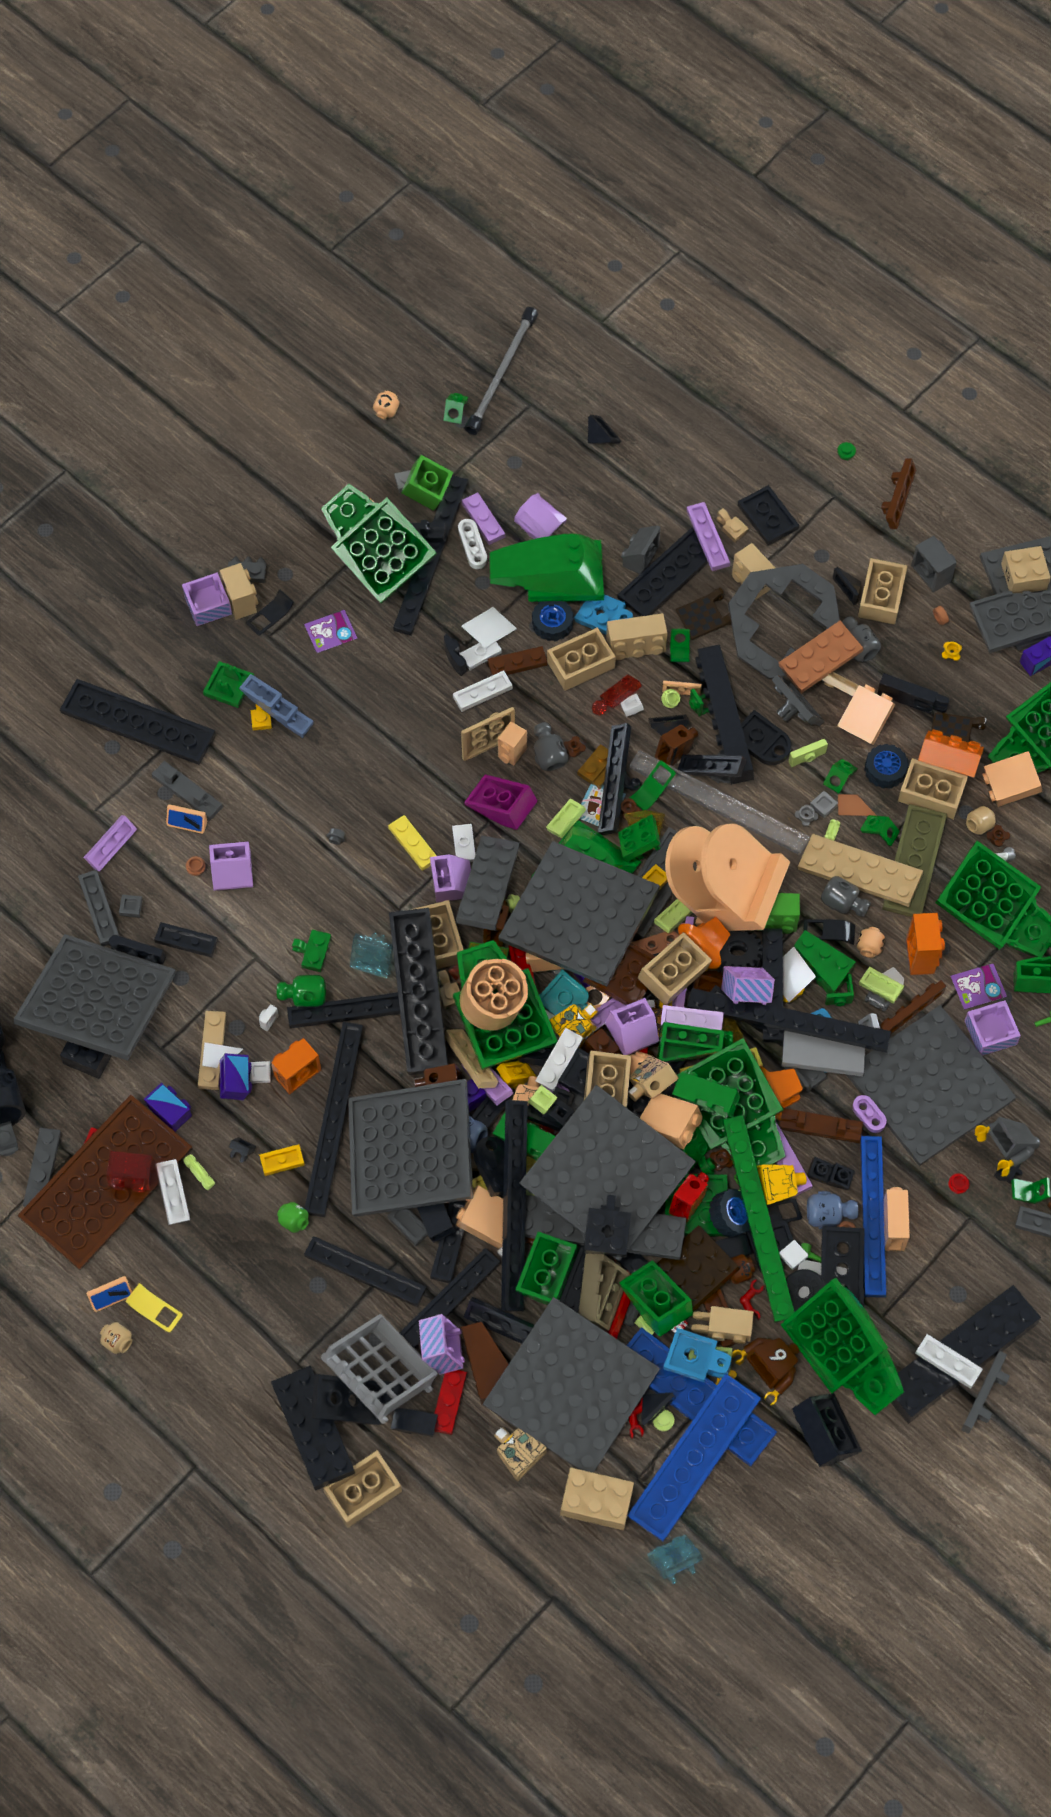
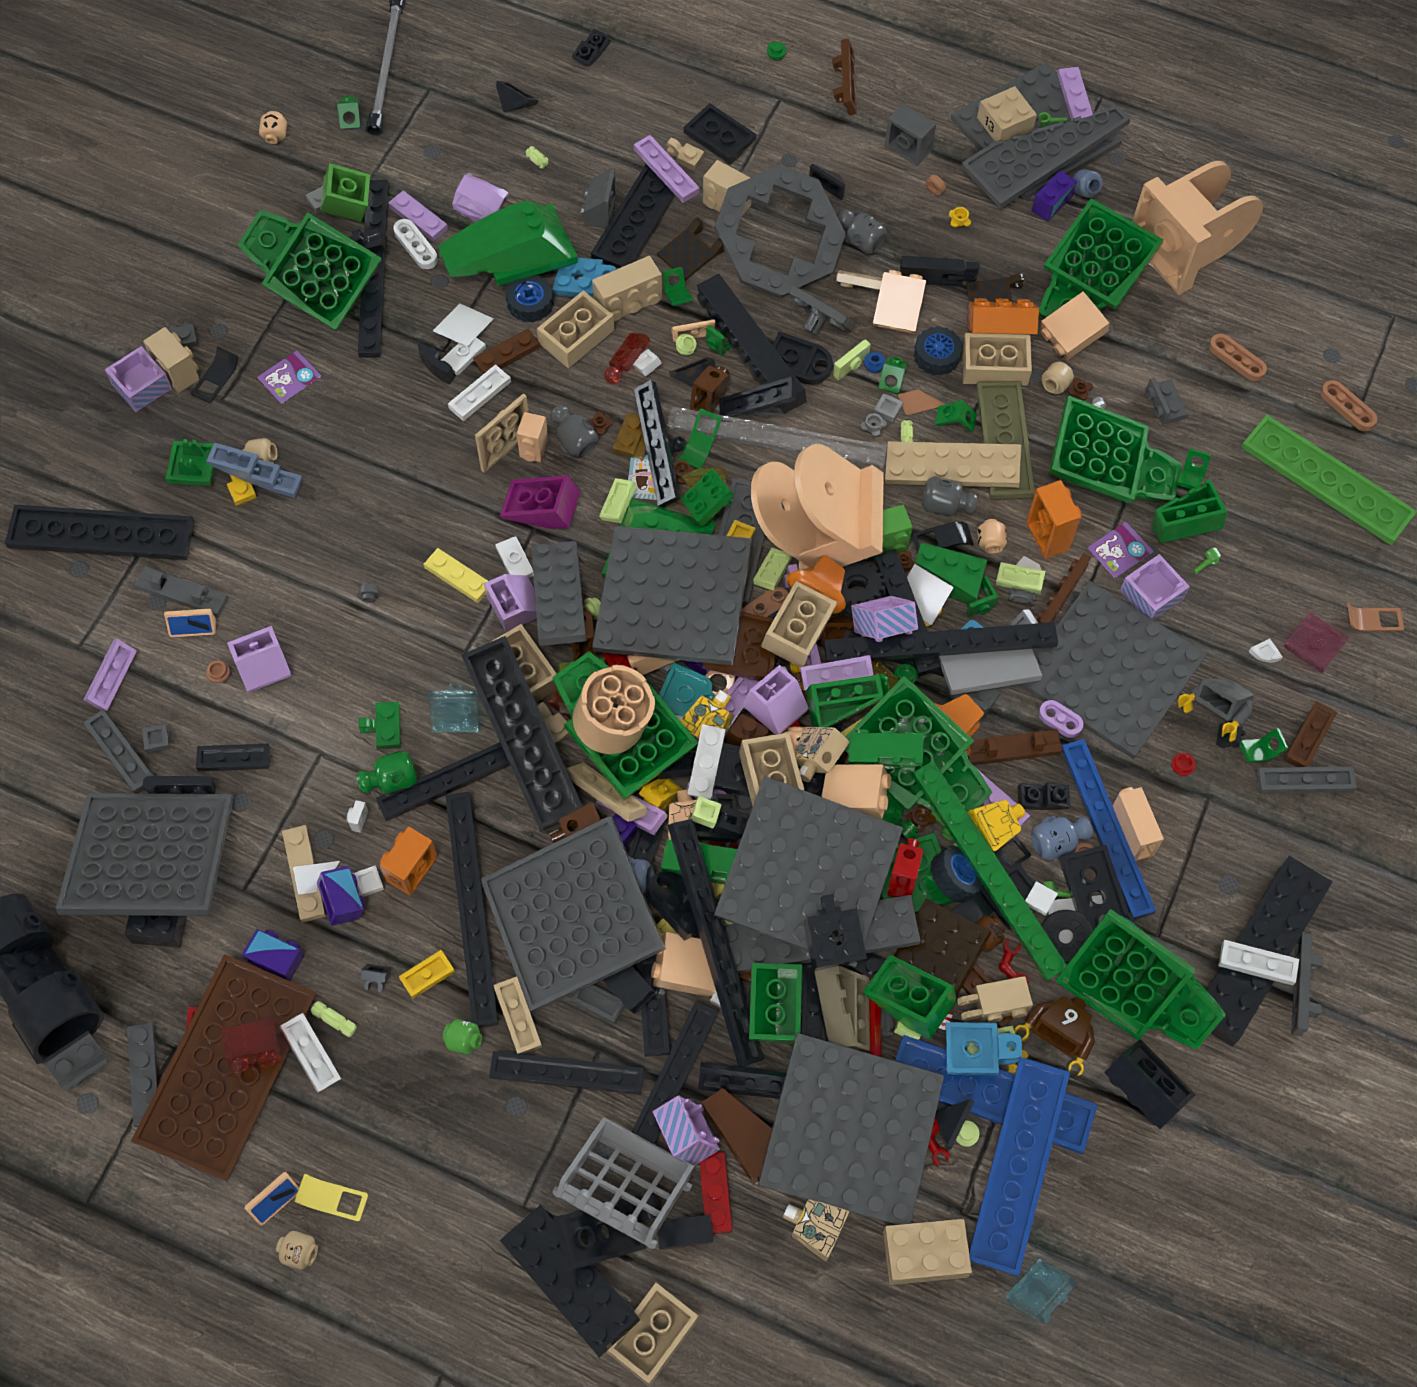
camera: 20 degrees left, 0 degrees up
(288, 689) = (263, 448): none -> tan head
(341, 1215) = (517, 1016): none -> tan plate
(602, 493) = (537, 157): none -> yellowish green piece
(684, 405) = (592, 48): none -> black slope
(753, 1037) = (907, 671): none -> green plate
(791, 938) = (907, 562): none -> reddish brown plate
(820, 656) = (830, 257): nougat plate -> none
(827, 764) = (874, 367): none -> blue plate
(882, 591) = (868, 176): tan brick -> none

